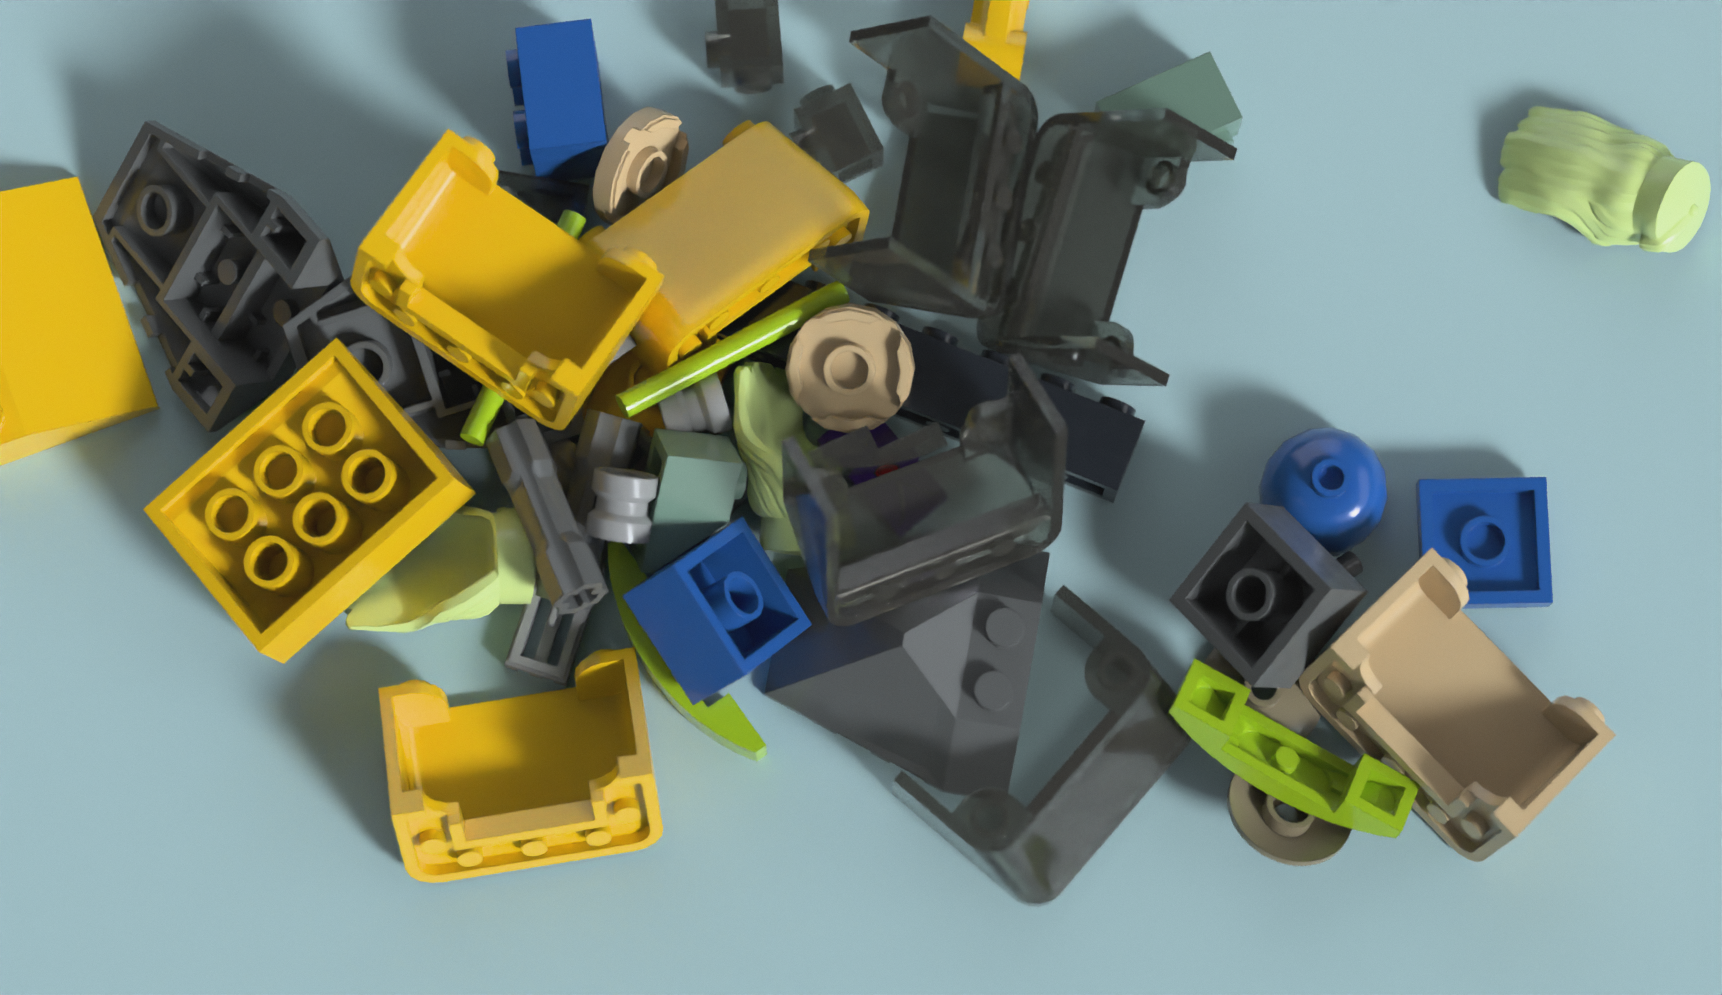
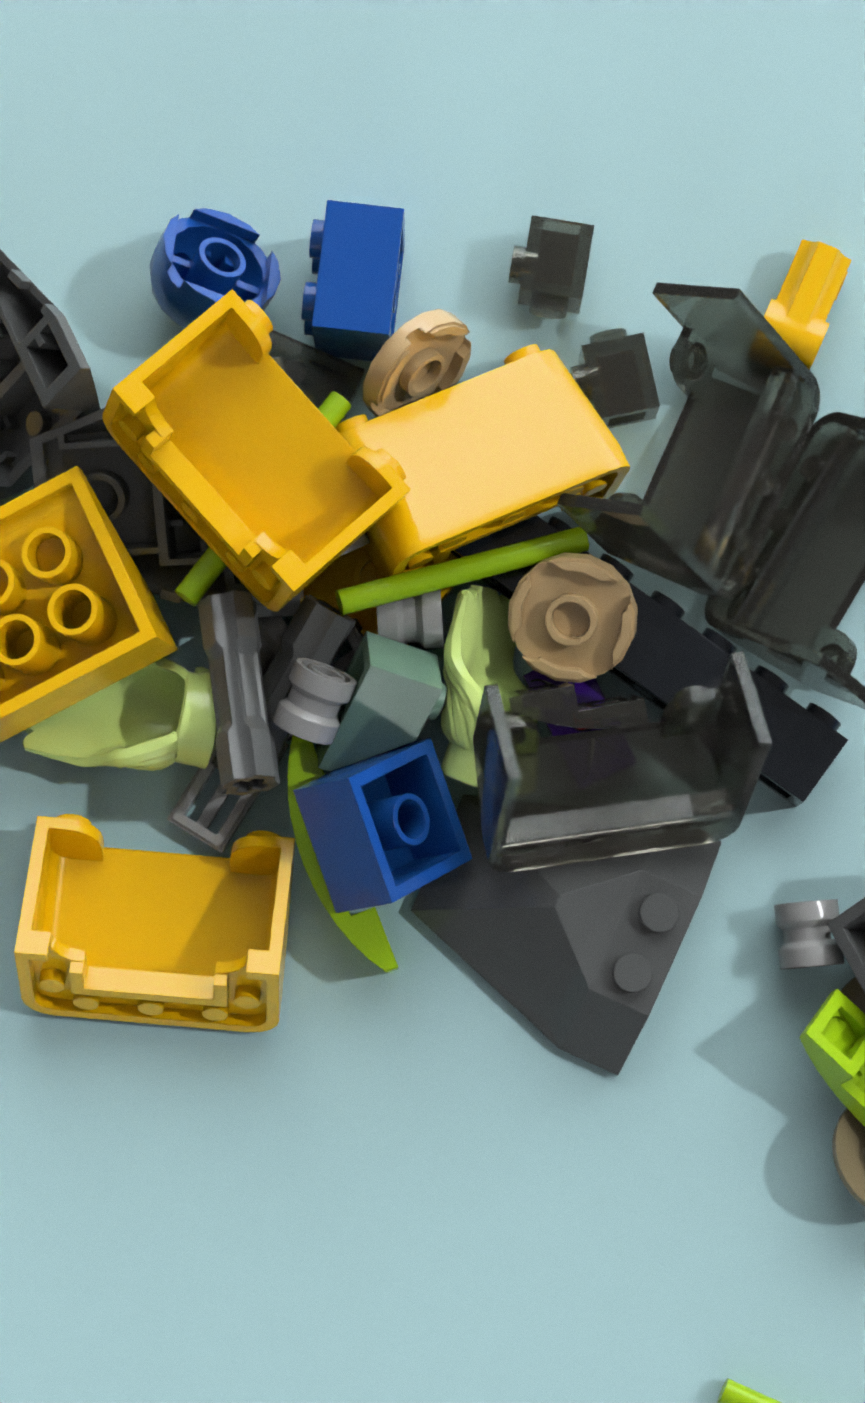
camera: 15 degrees right, 5 degrees up
(408, 116) = (204, 260): none -> blue cylinder
(1046, 845) = (647, 1133): clear smoke windscreen -> none
(1155, 618) = (807, 934): none -> light grey wheel

